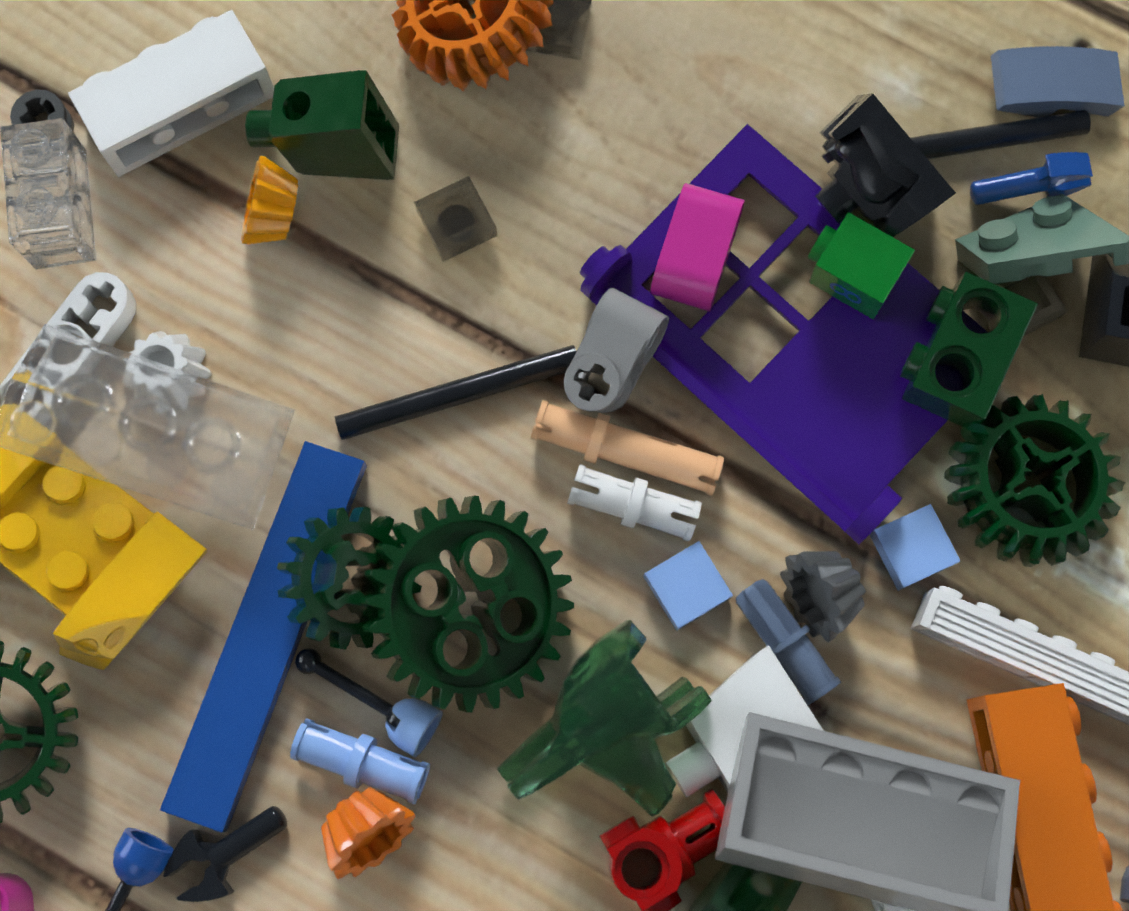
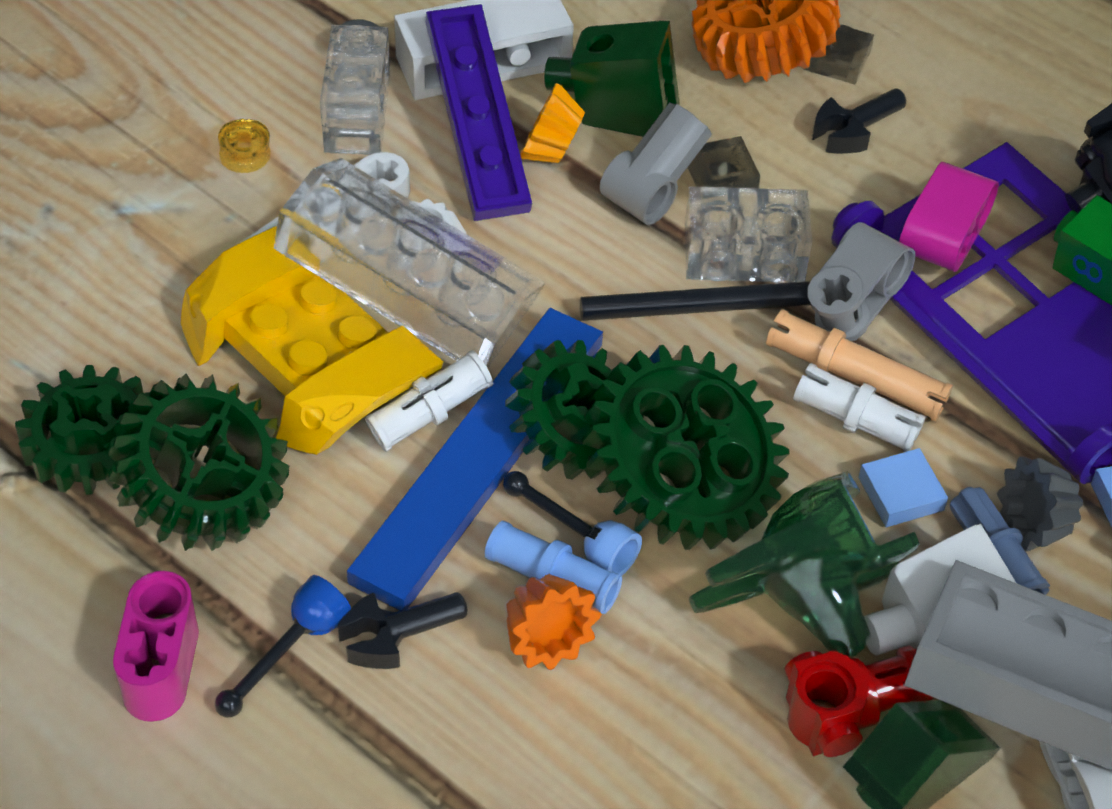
camera: 10 degrees right, 25 degrees down
(173, 619) = (429, 400): none -> white pin
(182, 201) = (478, 112): none -> dark purple tile
(377, 250) = (647, 178): none -> light grey piece
(490, 290) = (747, 234): none -> clear brick
(587, 115) = (851, 125): none -> black bar

